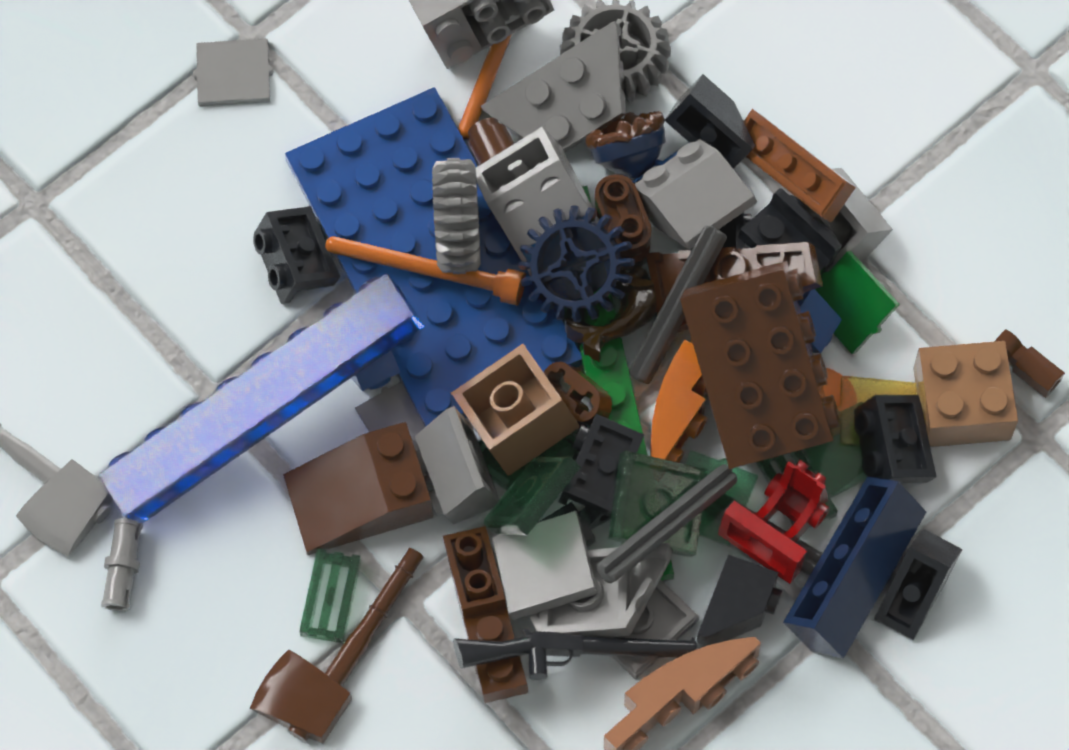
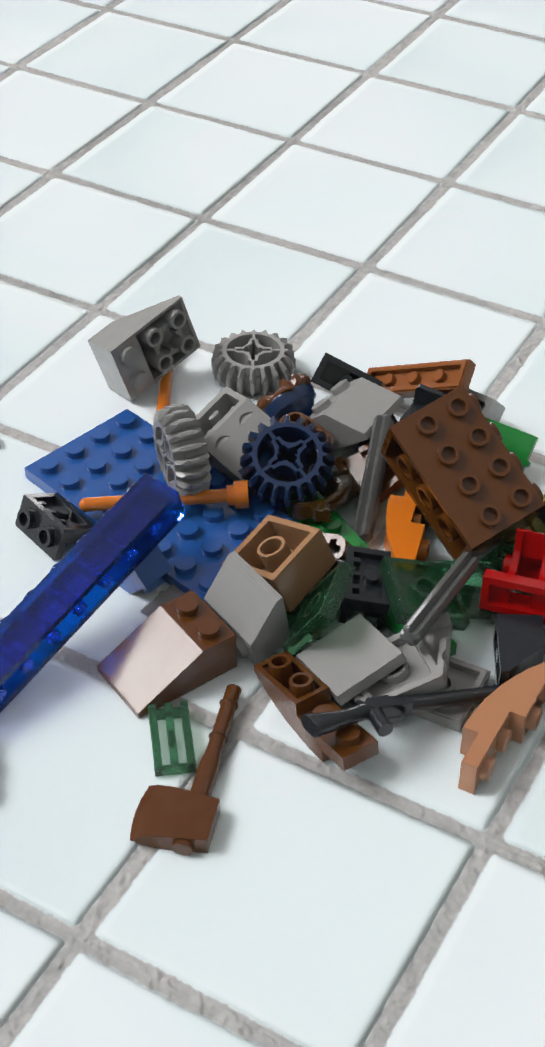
camera: 20 degrees left, 25 degrees down
(569, 93) = (241, 368): light grey wing -> none

